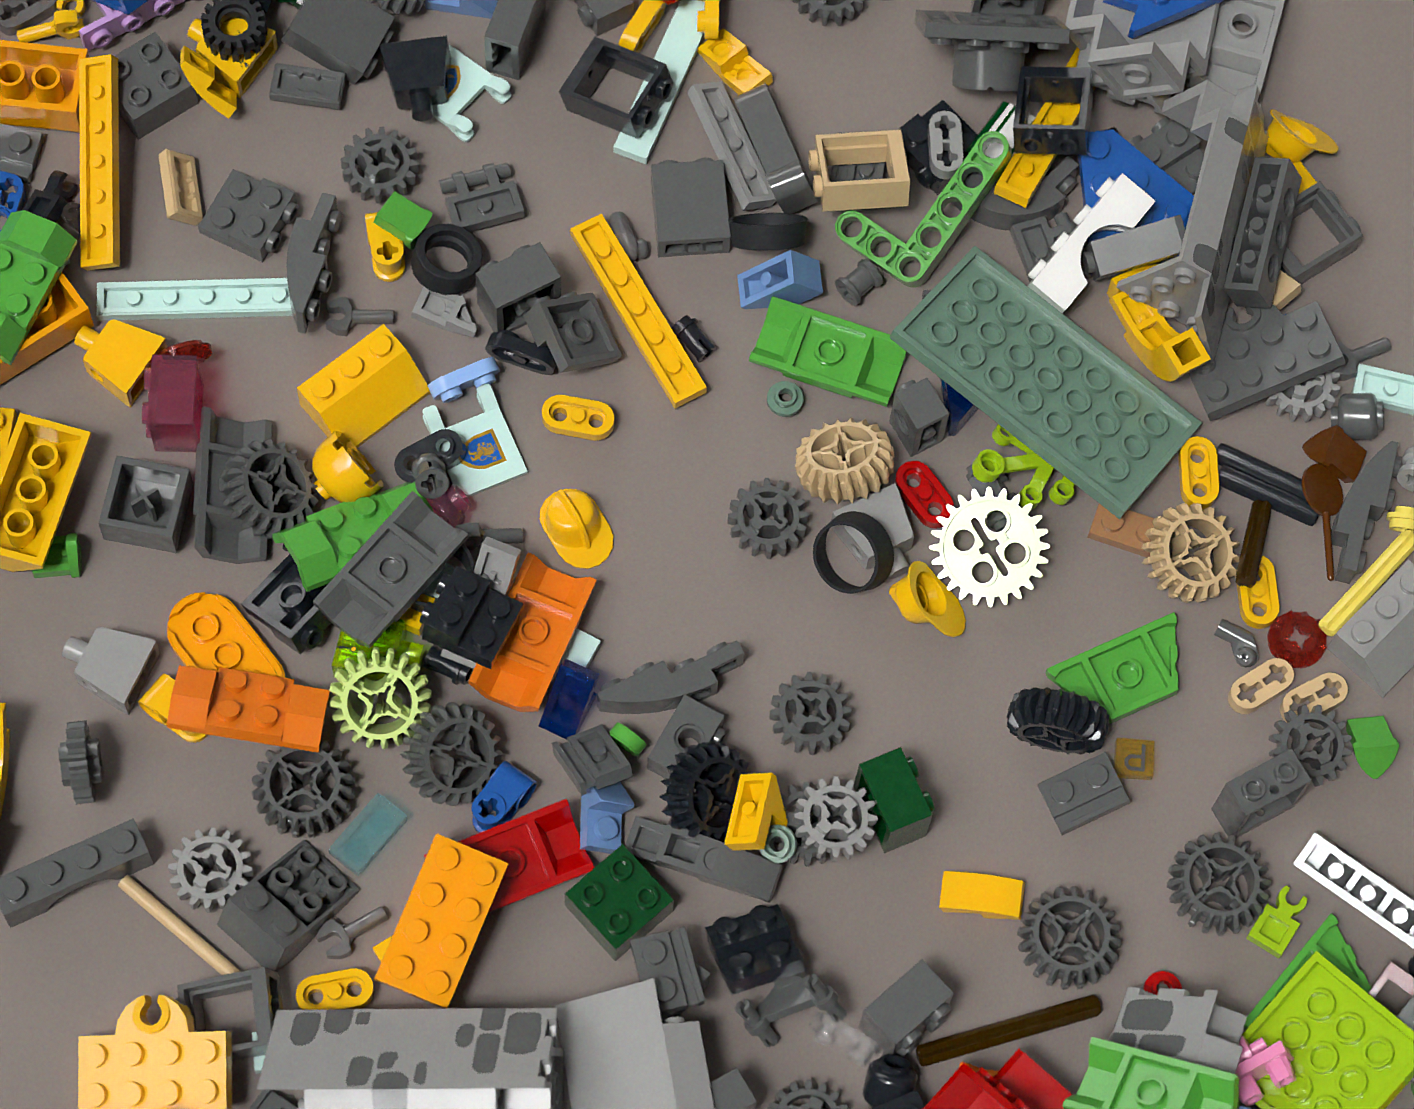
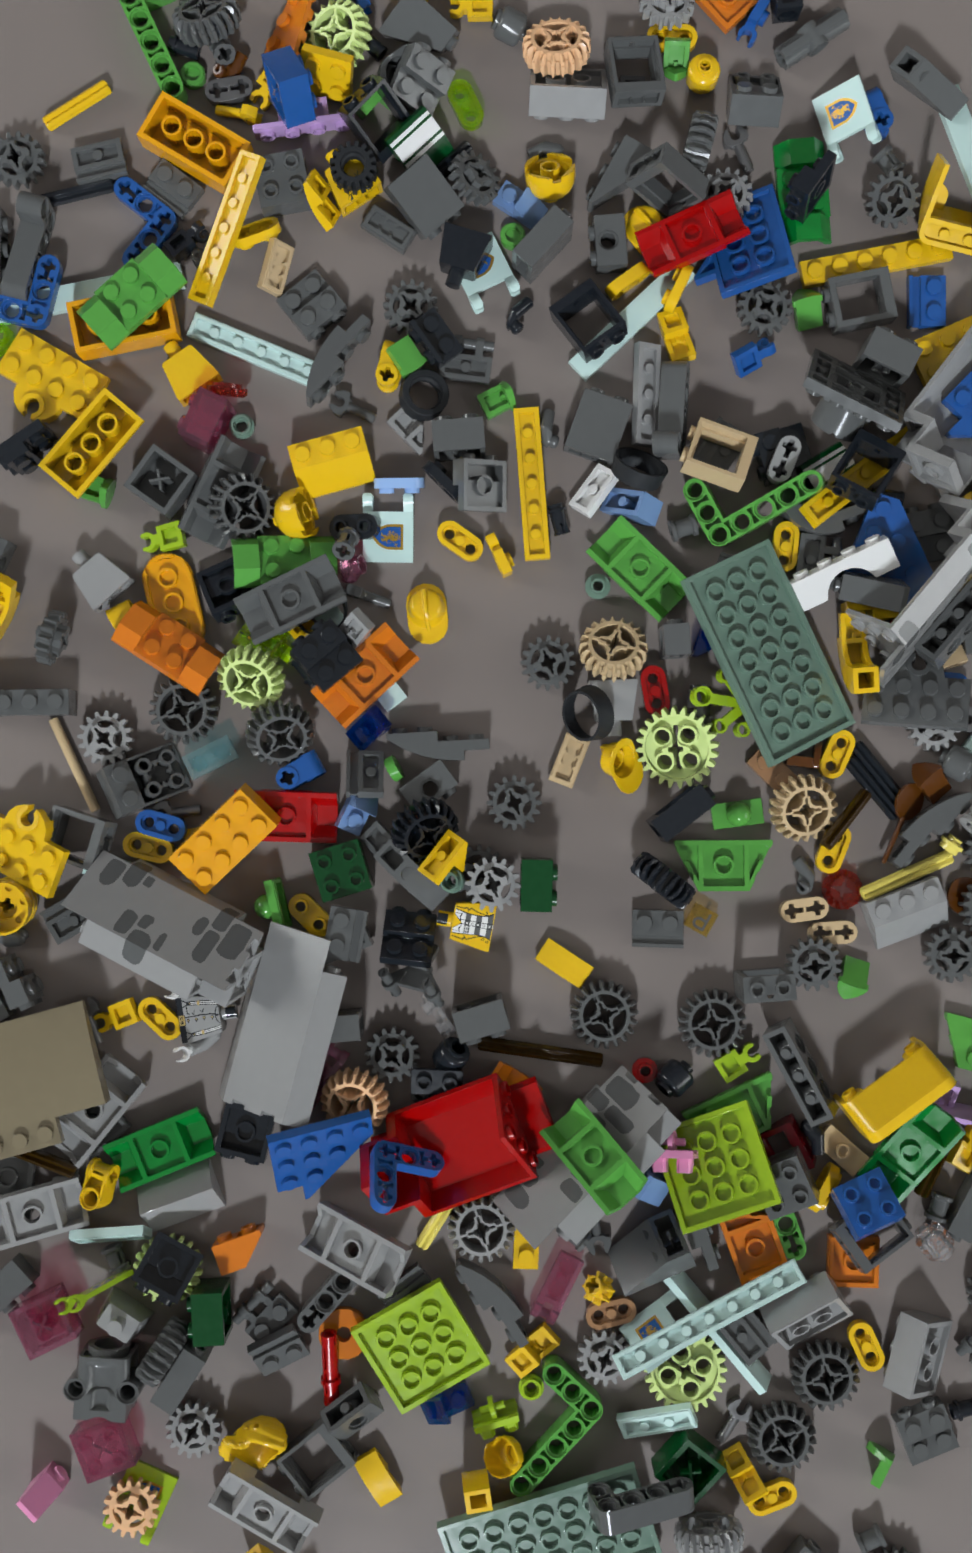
camera: 30 degrees right, 20 degrees up
(140, 154) = (258, 232): none -> yellow plate
(183, 573) = (168, 538): none -> lime plate
(218, 387) = (236, 421): none -> sand green plate
(341, 948) = (162, 825): none -> blue plate
(430, 184) = (435, 338): none -> black bracket
(469, 33) = (511, 235): none -> bright green tile
(518, 120) = (515, 314): none -> black arm
(544, 990) = (273, 903): none -> bright green tile
(546, 225) = (497, 400): none -> bright green tile
(602, 979) = (311, 913): none -> yellow plate
(645, 417) = (503, 560): none -> yellow plate
(723, 284) = (594, 491): none -> white plate
(829, 897) = (469, 924): none -> torso
(839, 49) = (750, 355): none -> blue plate
(856, 629) = (568, 761): none -> tan plate
(1003, 252) = (789, 547): none -> yellow plate
(1036, 624) = (681, 811): none -> black window
(1110, 603) = (737, 813): none -> bright green tile
(1164, 496) = (807, 762): none -> reddish brown tile
(1209, 972) = (674, 1078): none -> black head

